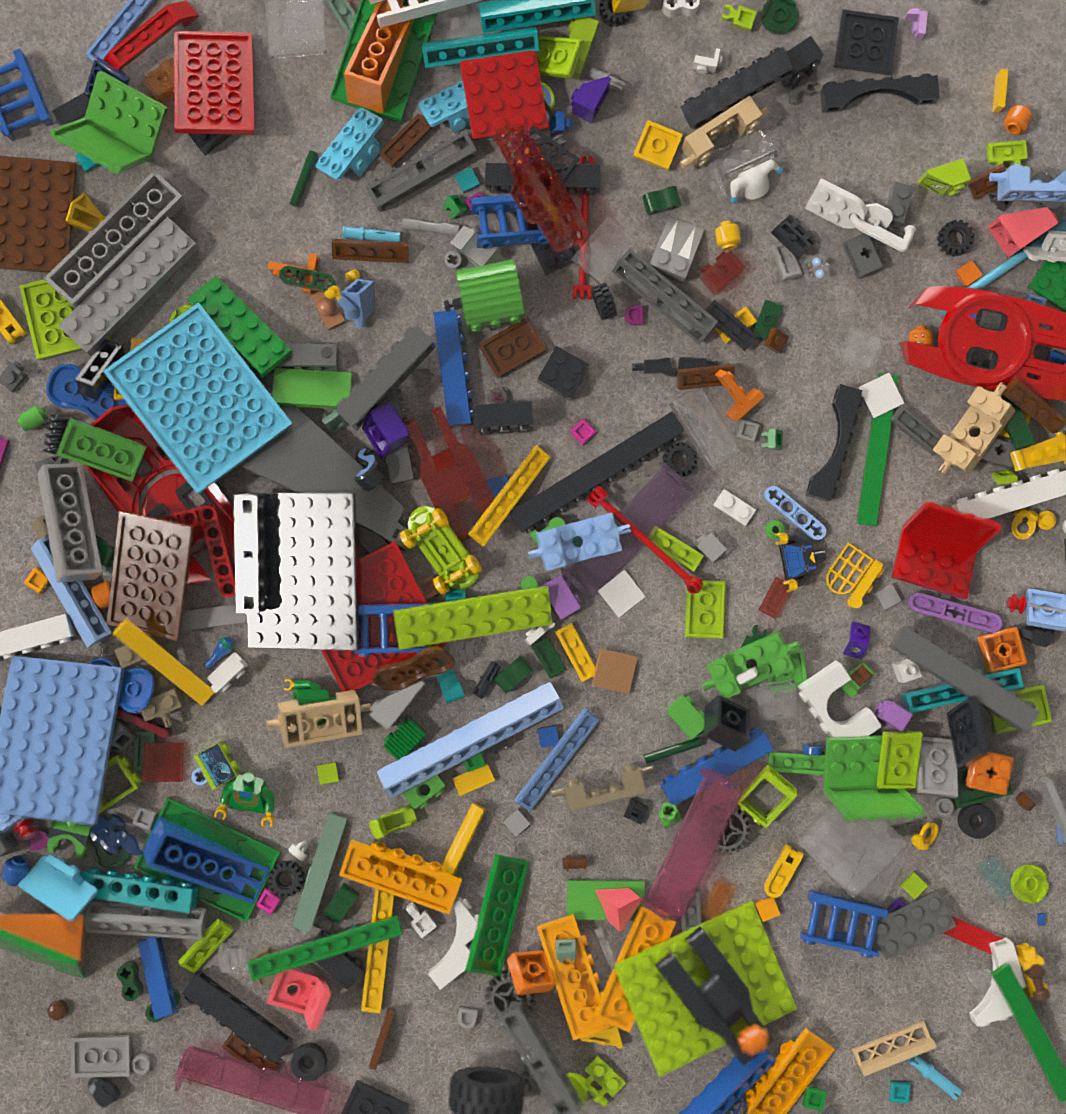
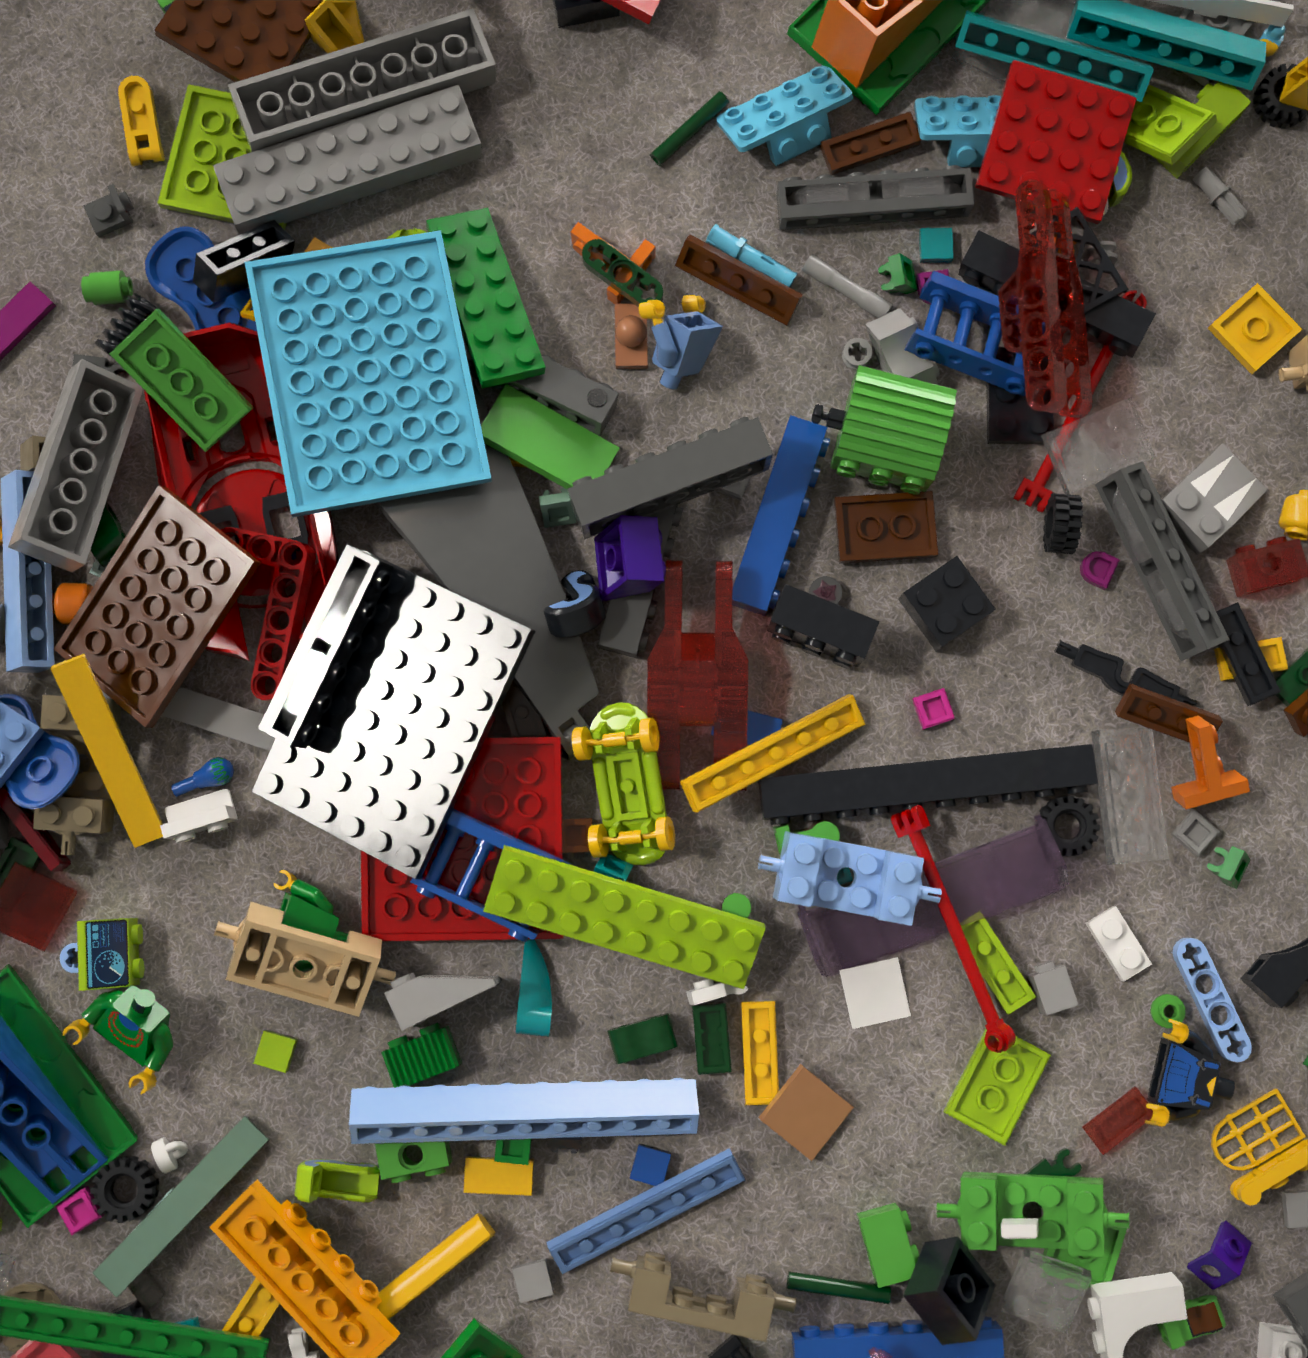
camera: 30 degrees right, 5 degrees down
(341, 902) = (191, 1272): dark green axle -> none
(404, 673) = (474, 952): reddish brown plate -> none
(486, 680) = (596, 1026): black axle -> none
(559, 123) = (1118, 226): blue tile -> none
(561, 597) = (778, 953): medium lavender brick -> none
(589, 98) = (1184, 209): dark purple slope -> none
(661, 200) = (1223, 414): dark green axle -> none

